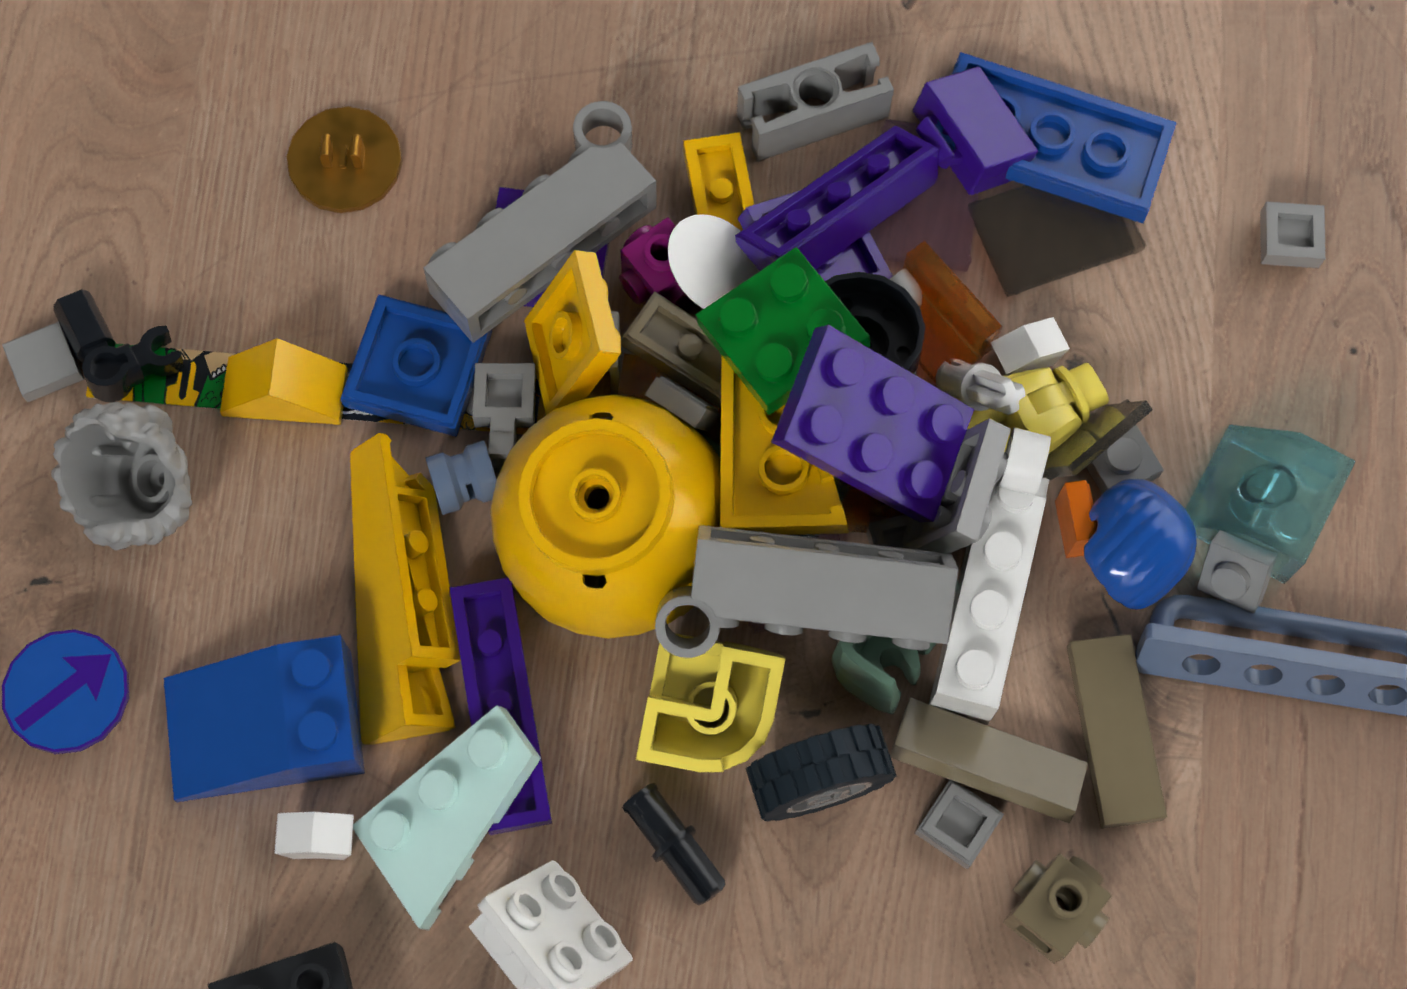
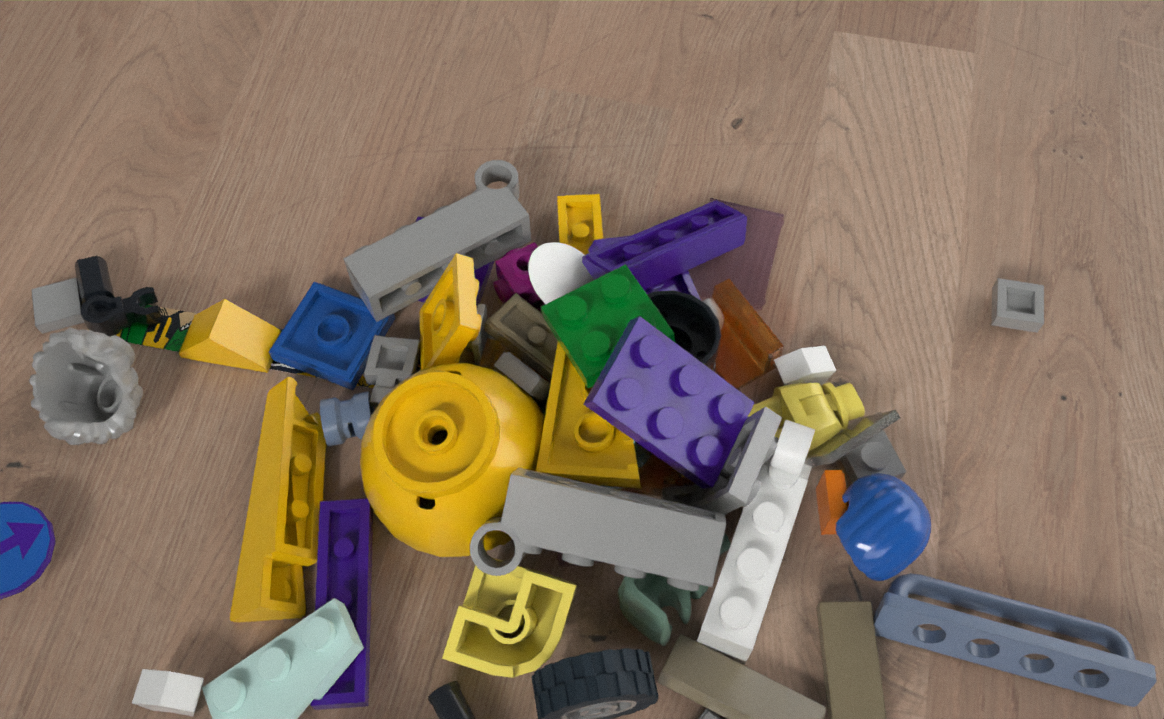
camera: 10 degrees right, 10 degrees down
(264, 720) = (156, 591): blue slope -> none
(344, 159) = (311, 190): pearl gold piece -> none
(820, 80) = (658, 179): light grey piece -> none
(979, 125) = (775, 210): dark purple piece -> none
(979, 386) = (764, 389): white axle -> none
(1046, 237) = (832, 285): clear smoke piece -> none
(1084, 143) = (835, 221): blue tile -> none
(1237, 571) = (963, 558): light grey plate -> none
(1270, 492) = (992, 502): clear light blue slope -> none

